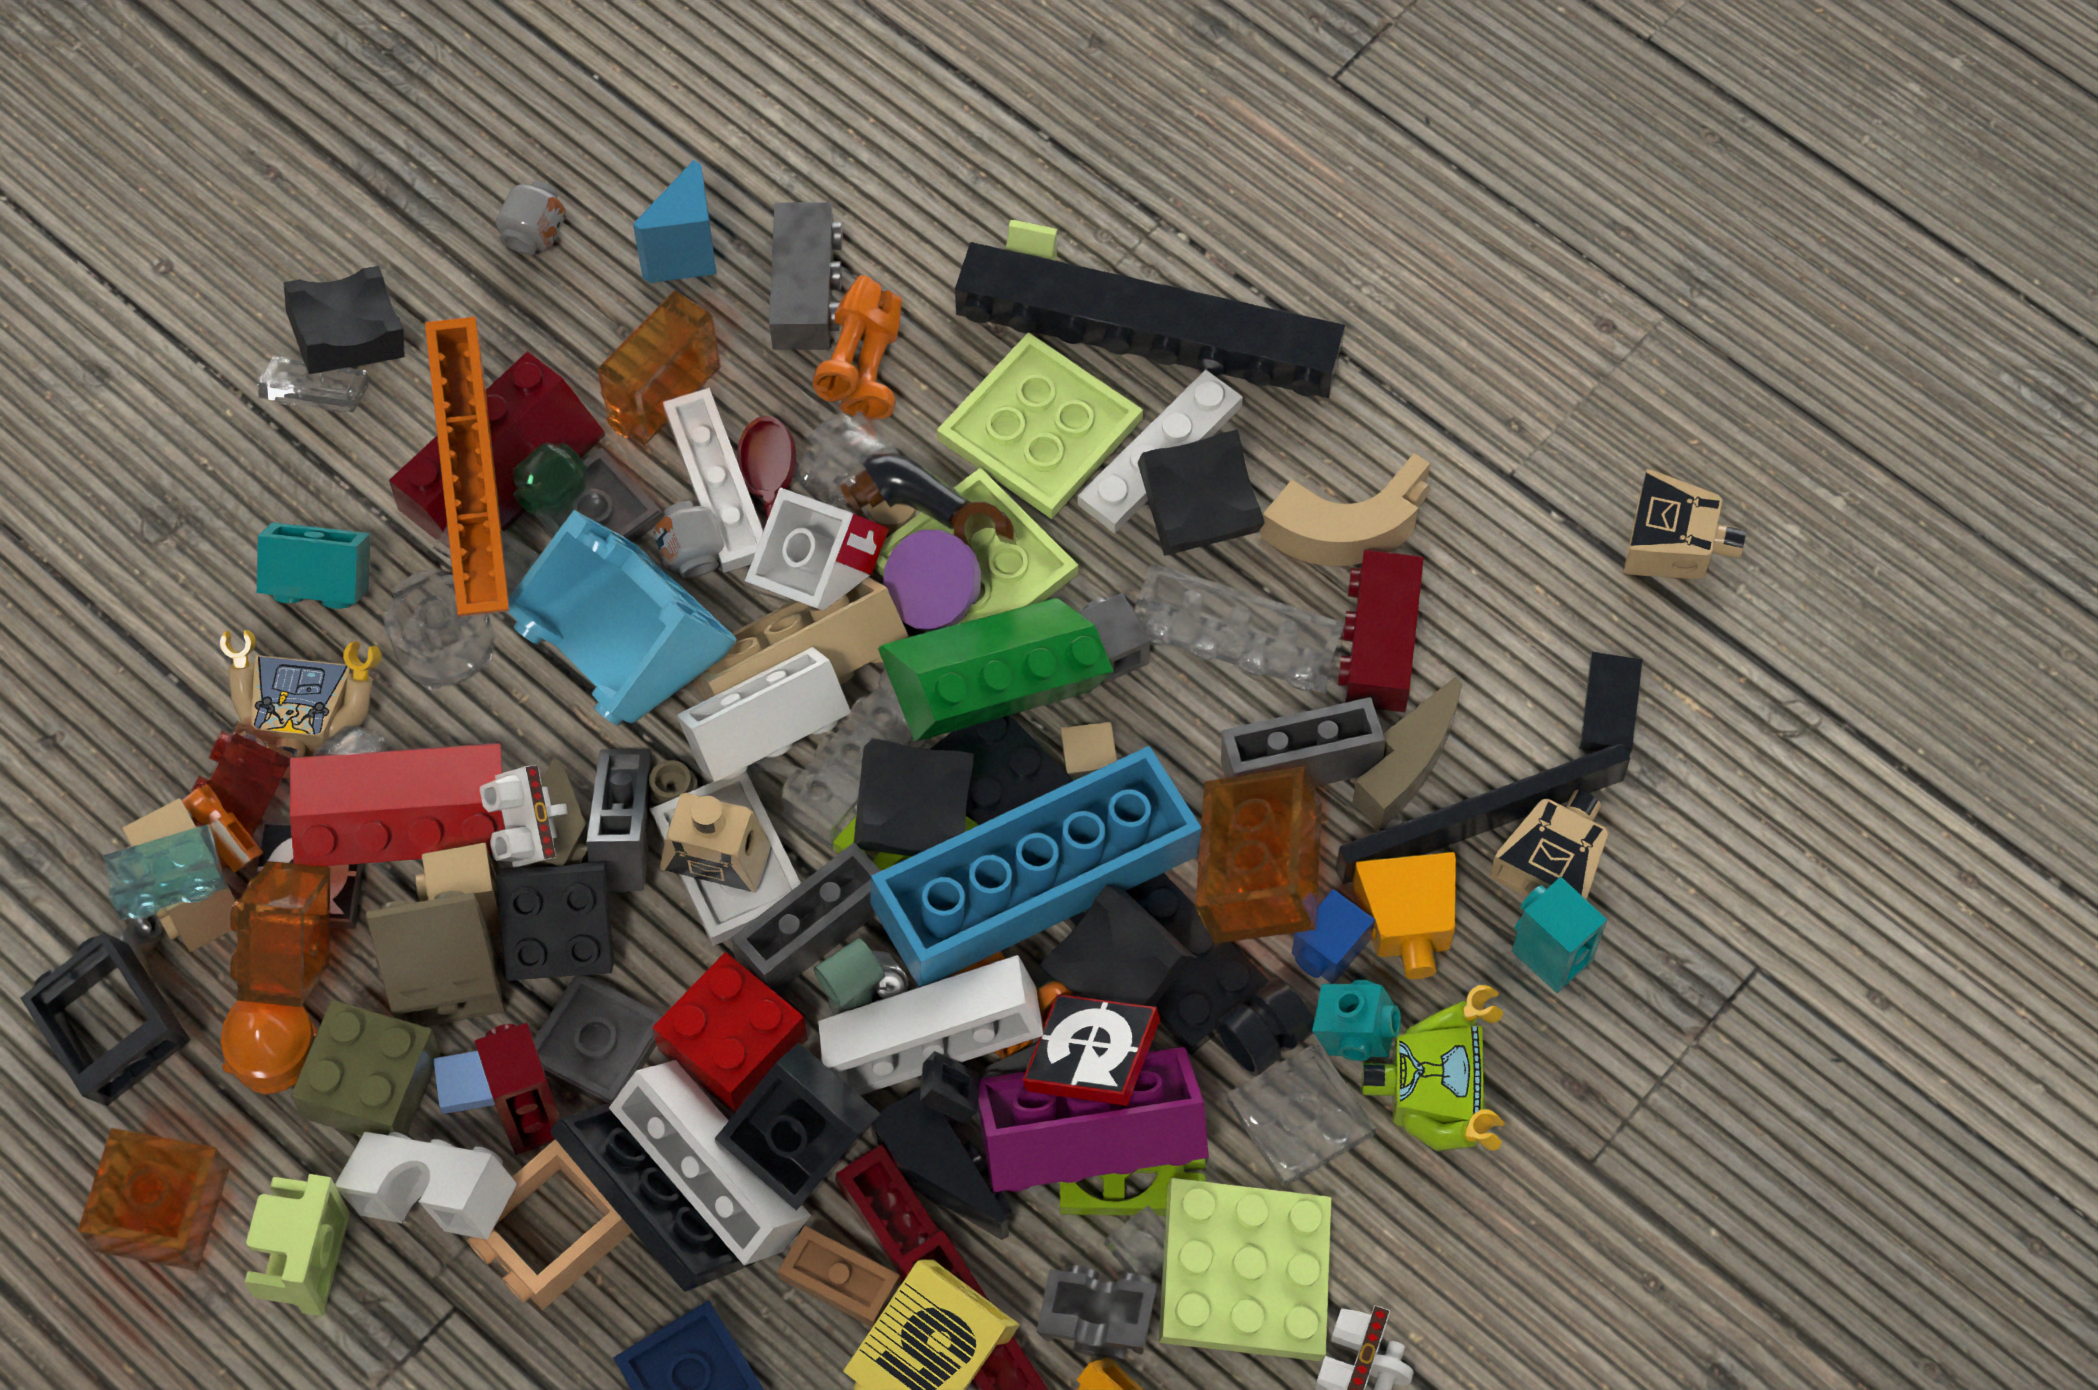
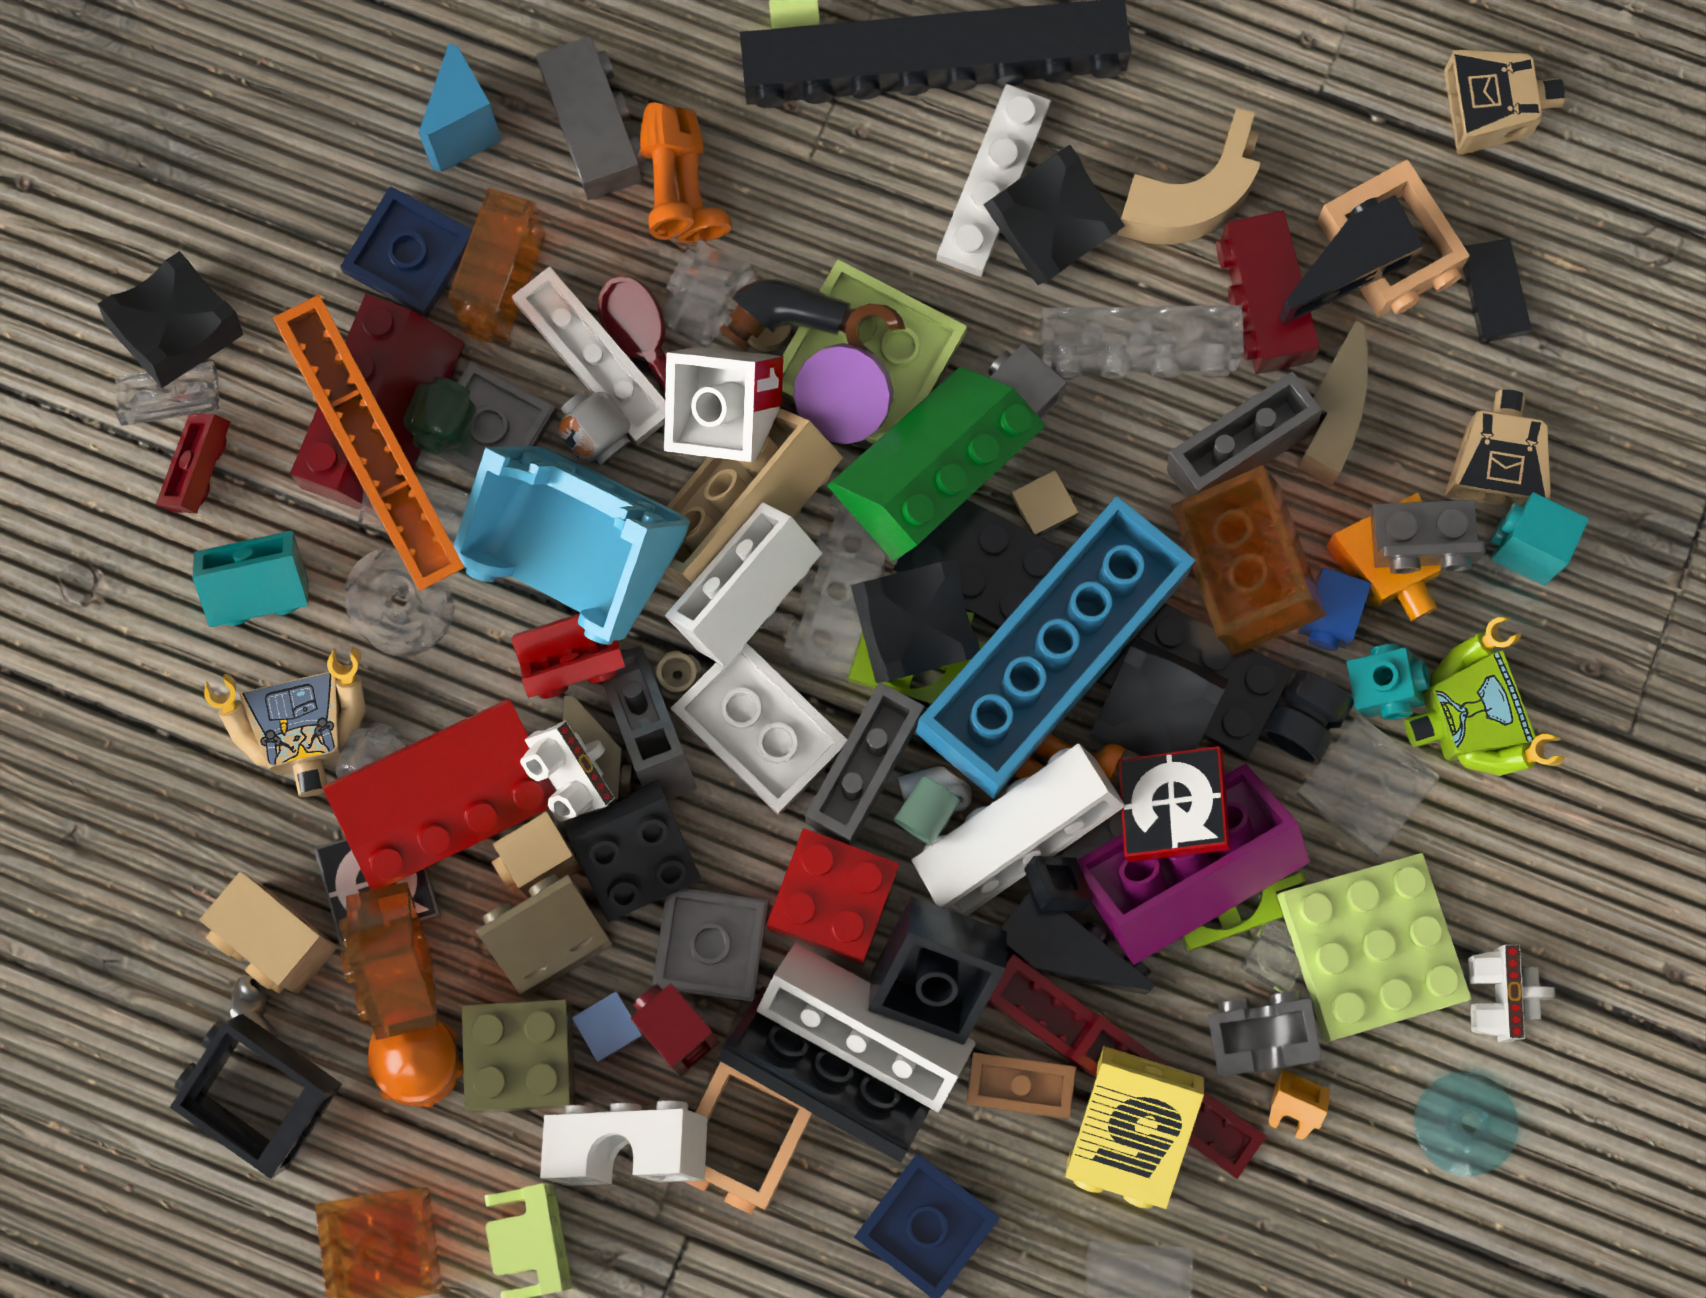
camera: 20 degrees left, 15 degrees up
(164, 873) = (261, 953): clear light blue bracket -> none
(231, 839) = (290, 880): orange plate -> none
(244, 775) = (277, 825): clear red bracket -> none
(320, 440) = (193, 463): none -> dark red plate
(530, 218) = (303, 147): light grey head -> none
(570, 724) = (561, 656): none -> red bracket
(579, 333) = (407, 252): none -> dark blue plate
(711, 840) = (750, 727): tan torso -> none
(1040, 425) = (873, 194): yellowish green plate -> none
(1443, 890) = (1425, 535): none -> flat silver bracket
(1478, 612) = (1365, 249): none -> black slope
(1486, 810) = (1422, 440): black tile -> none
(1521, 578) = (1441, 274): none -> light nougat window

